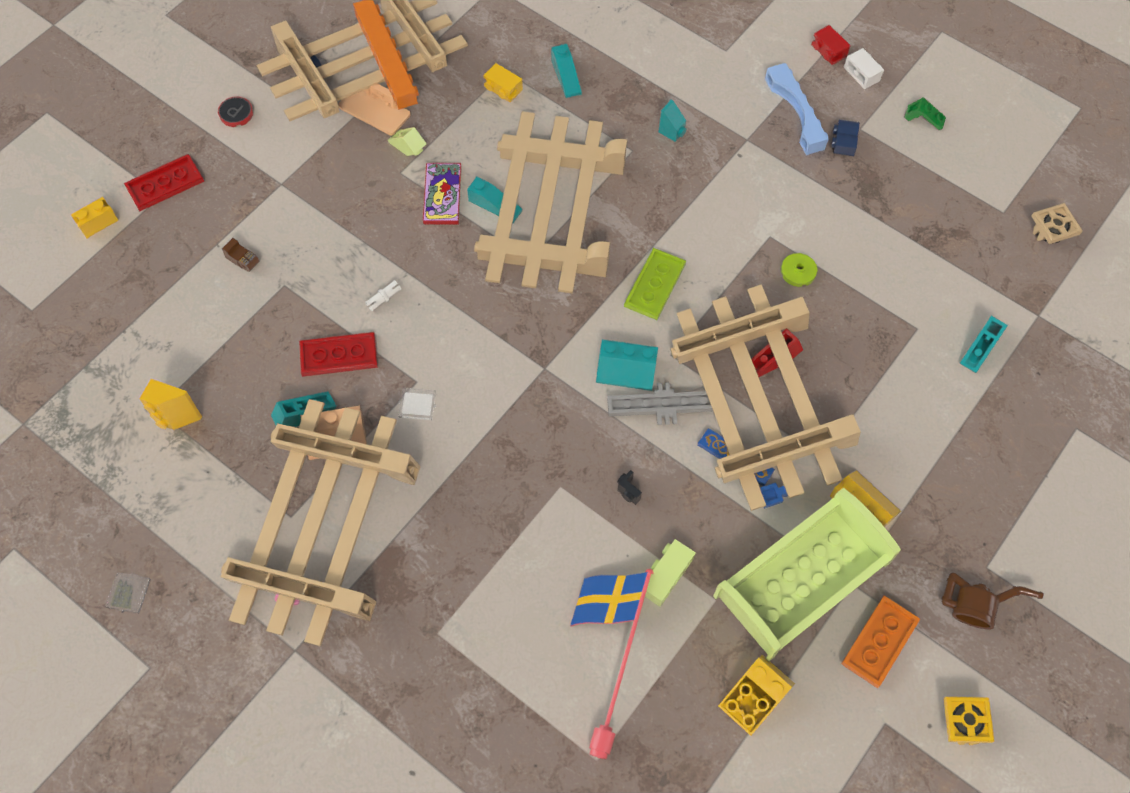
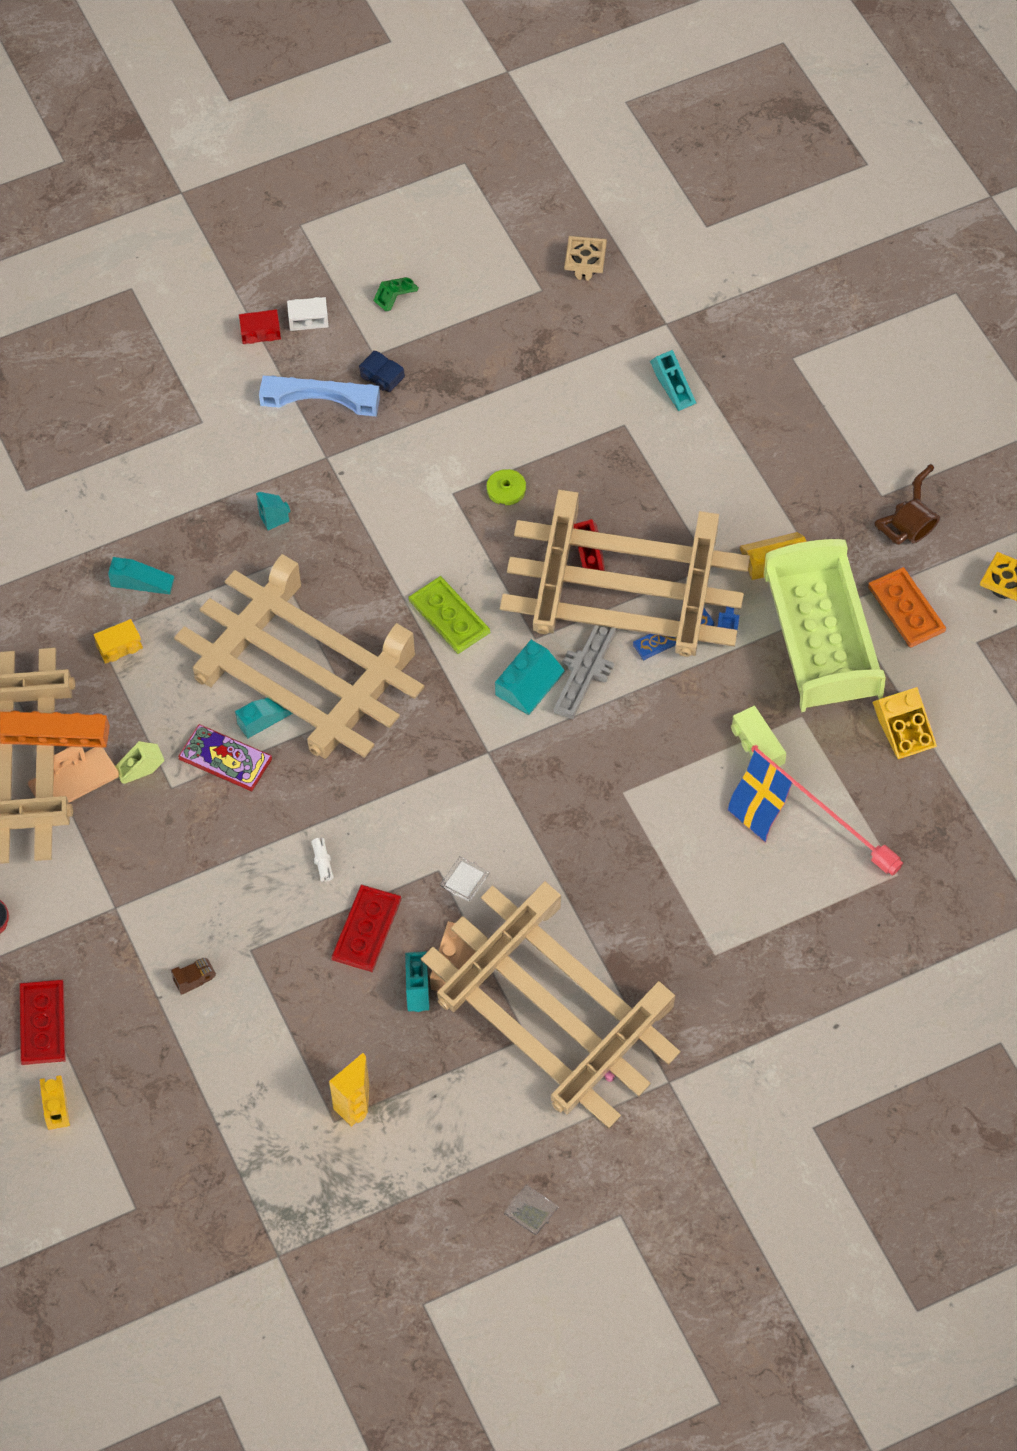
camera: 60 degrees left, 5 degrees down
(628, 491) = (660, 735): black bracket -> none

